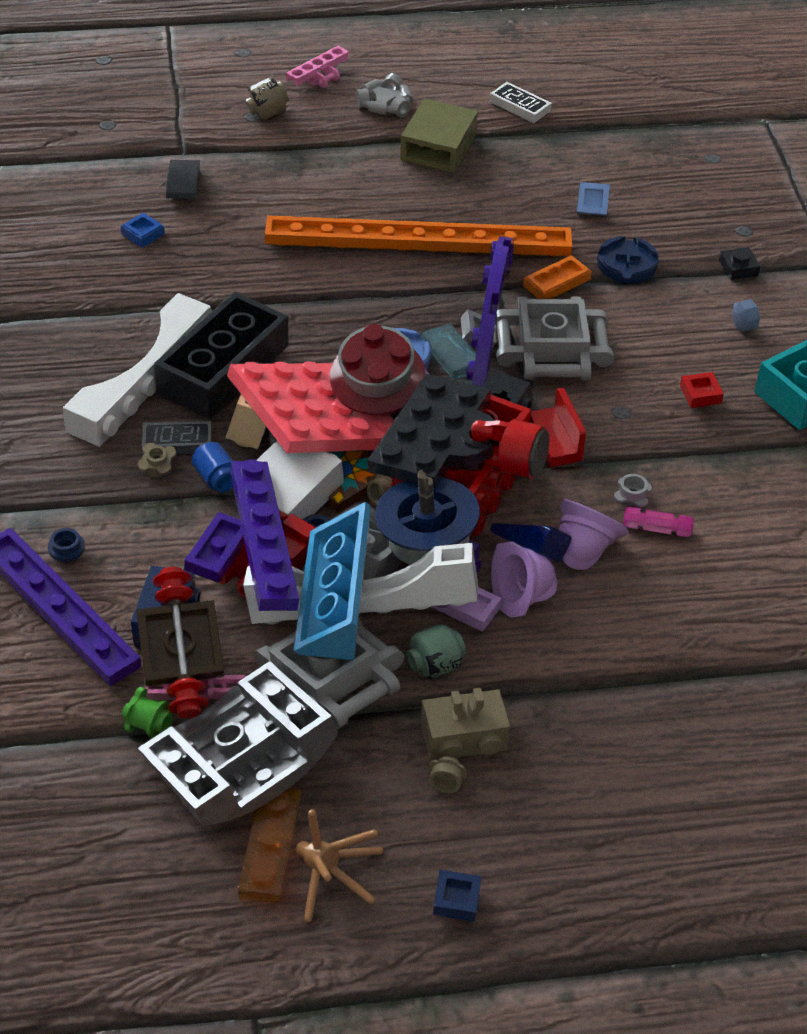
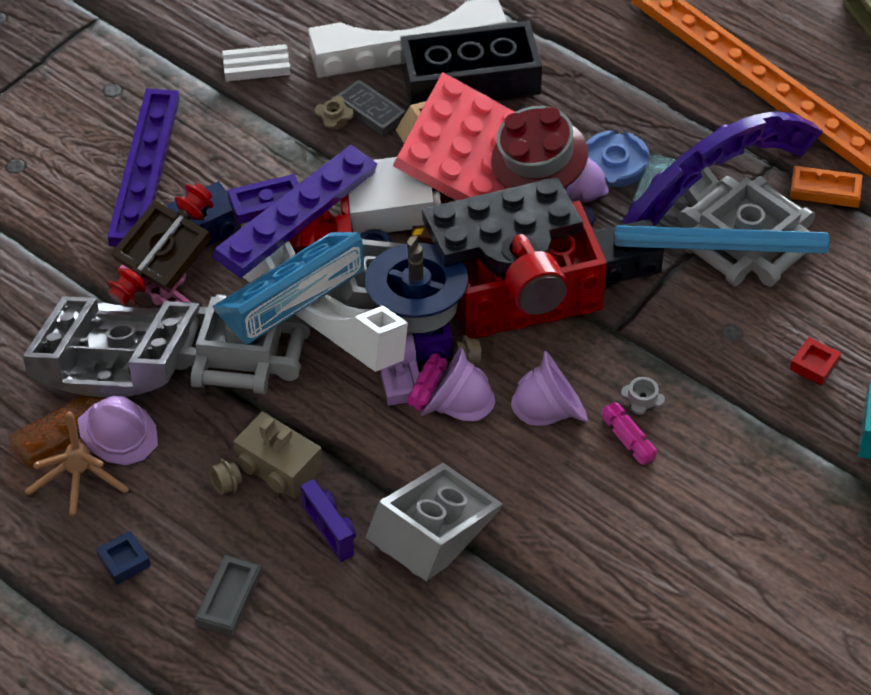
camera: 50 degrees right, 5 degrees up
(33, 465) = (256, 62): none -> white tile
(66, 545) = (201, 129): dark blue plate -> none
(146, 714) = (96, 276): bright green brick -> none
(213, 466) = (365, 138): blue brick -> none
(331, 799) = (118, 431): none -> lavender piece
(436, 651) = (328, 390): sand green head -> none
(487, 548) = (471, 348): none -> dark tan plate
(502, 588) = (427, 382): none -> dark pink axle
(540, 539) = (497, 368): clear blue slope -> none
(561, 739) = (322, 511): none -> dark purple plate
(562, 854) = (228, 595): none -> dark grey tile
(564, 347) = (721, 239): none -> dark azure axle
(564, 428) = (647, 306): red panel -> none
(629, 680) = (431, 520): none -> light grey slope

